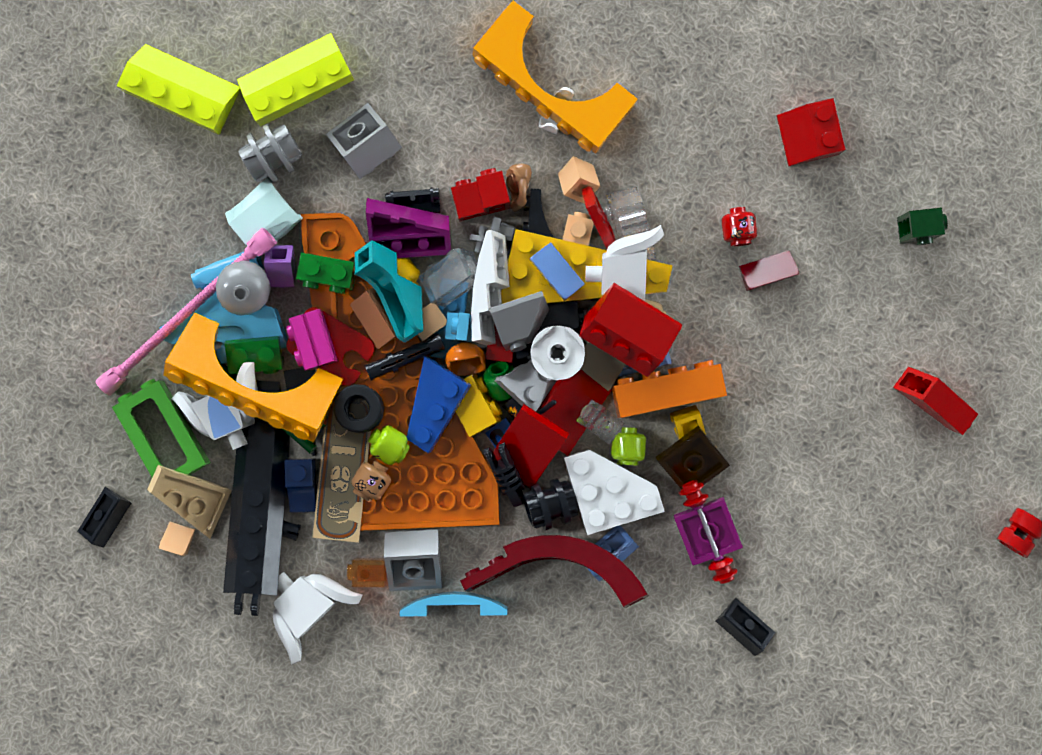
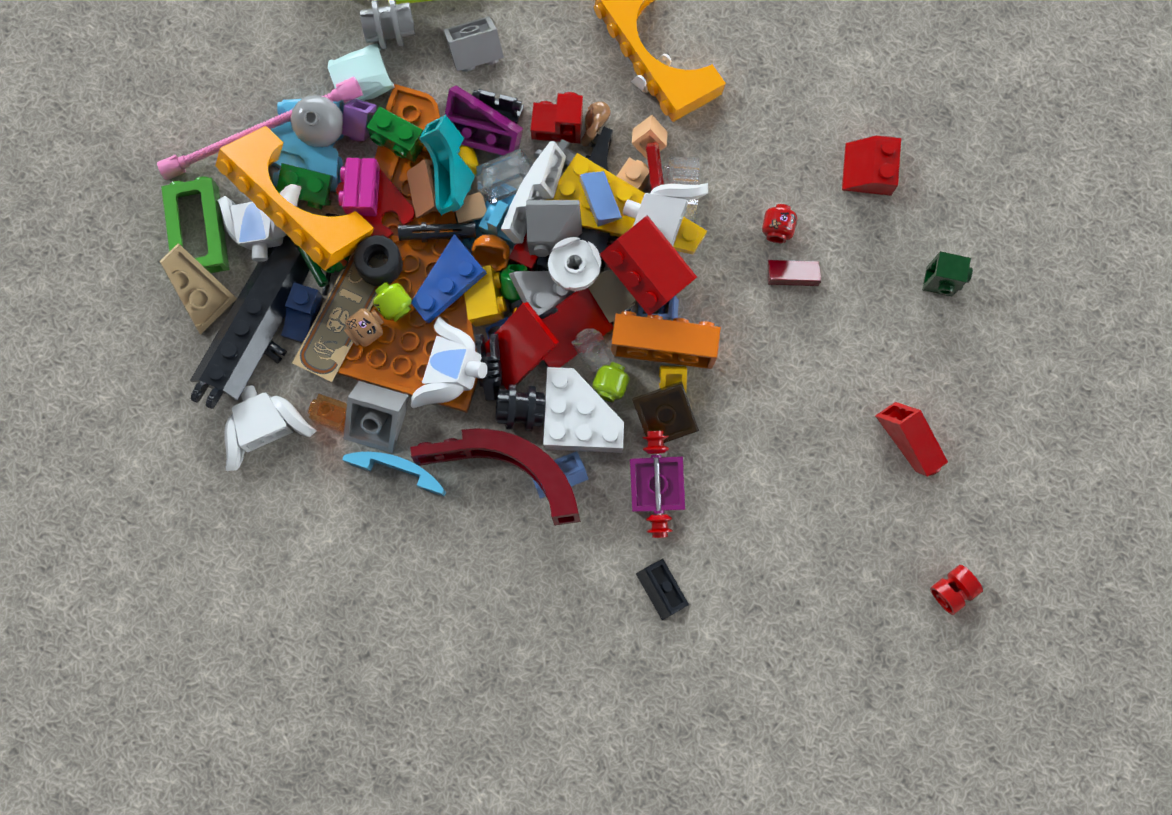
camera: 15 degrees right, 10 degrees down
(104, 517) = (115, 284): black slope -> none
(177, 539) = (171, 324): light nougat slope -> none
(471, 490) = (450, 367): none -> white torso

